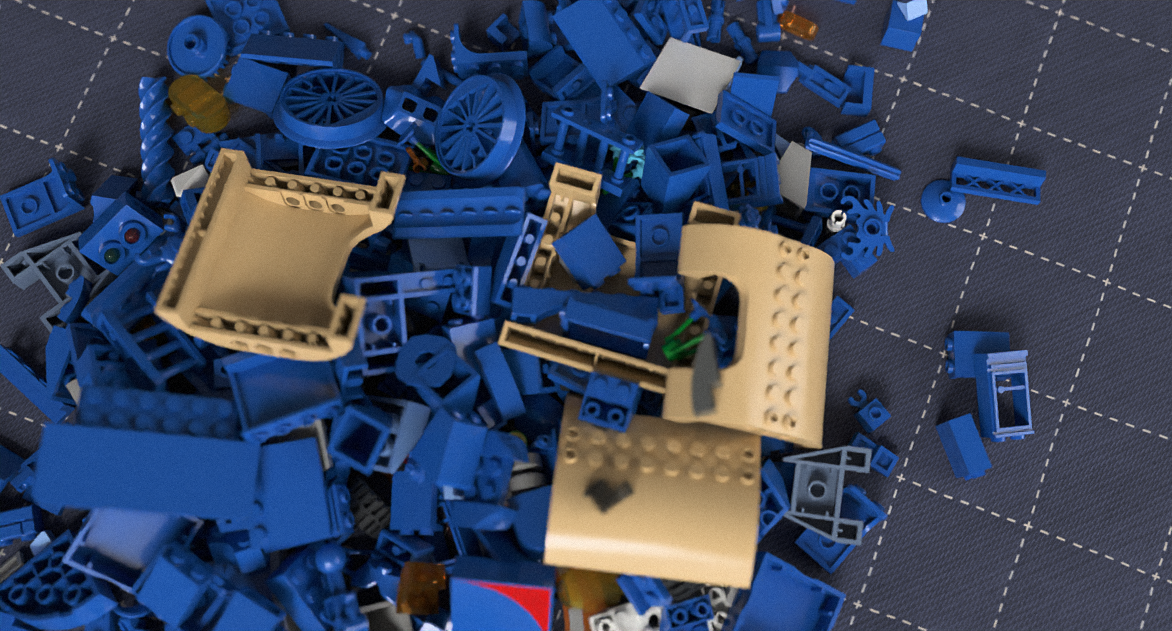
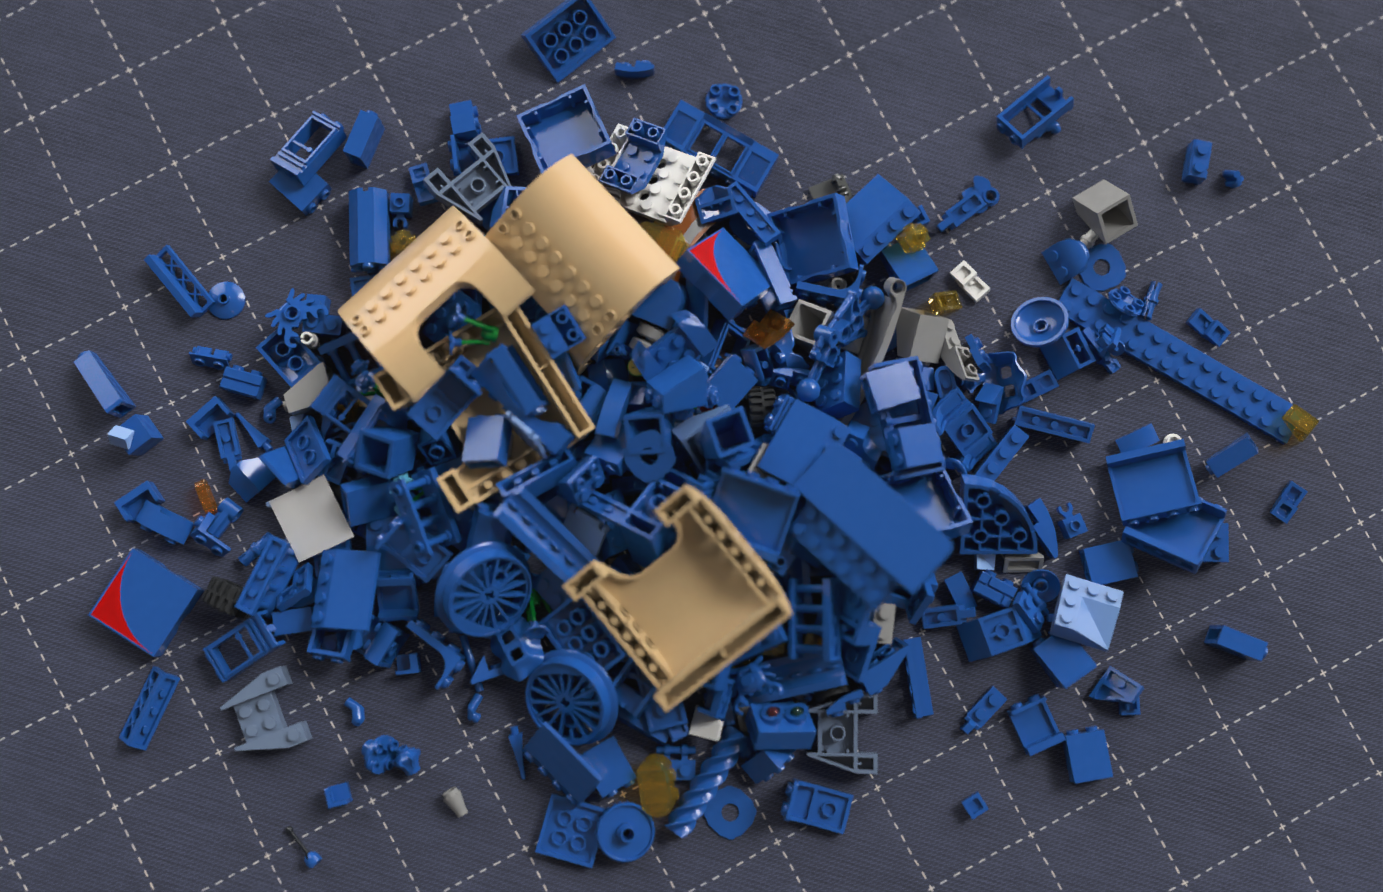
camera: 145 degrees left, 5 degrees up
(103, 138) = (746, 815): none -> blue piece
(366, 553) = (788, 376): none -> blue slope
(421, 161) = (542, 609): dark orange hand -> none
(559, 284) = (526, 434): none -> medium blue piece
(604, 497) = (610, 267): clear smoke piece -> none
(644, 592) = (636, 210): blue bracket -> none
(705, 378) = (488, 286): dark grey slope -> none
(742, 43) = (254, 517): blue pin -> none
(801, 109) = (260, 440): none -> blue piece
(835, 390) = (400, 237): none -> clear yellow brick
(852, 158) = (259, 372): blue axle -> none
(877, 365) = (369, 230): none -> blue brick
(889, 546) = (464, 120): none -> blue brick
(899, 143) = (202, 357): none -> blue hinge
(972, 41) = (103, 384): none -> slope

